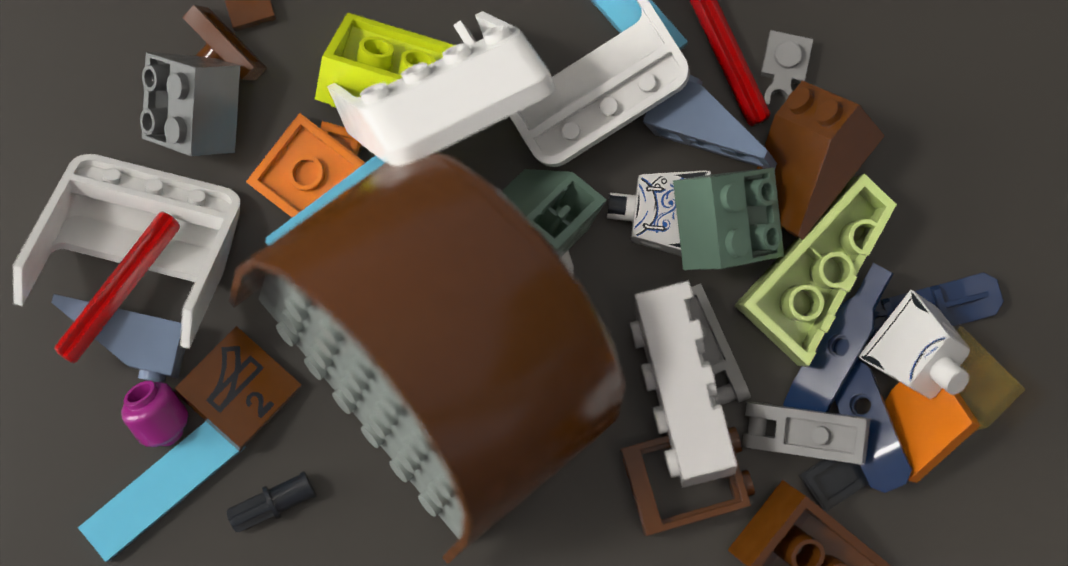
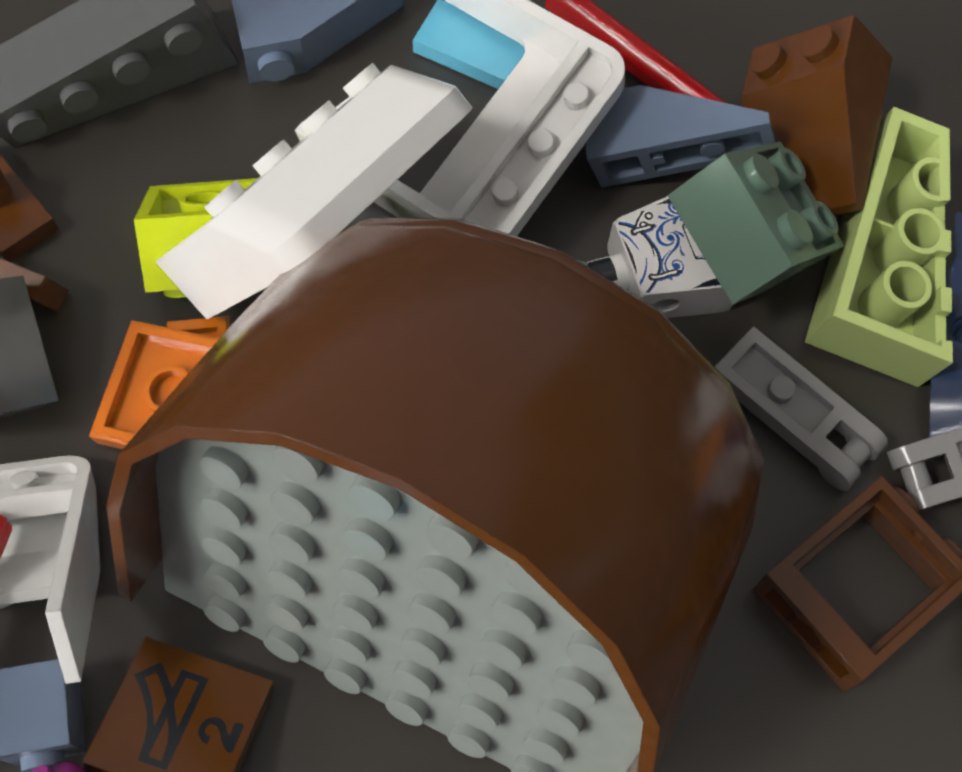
camera: 30 degrees left, 15 degrees down
(683, 386) = (823, 449): white wedge -> none
(785, 62) = (717, 49): light grey plate -> none

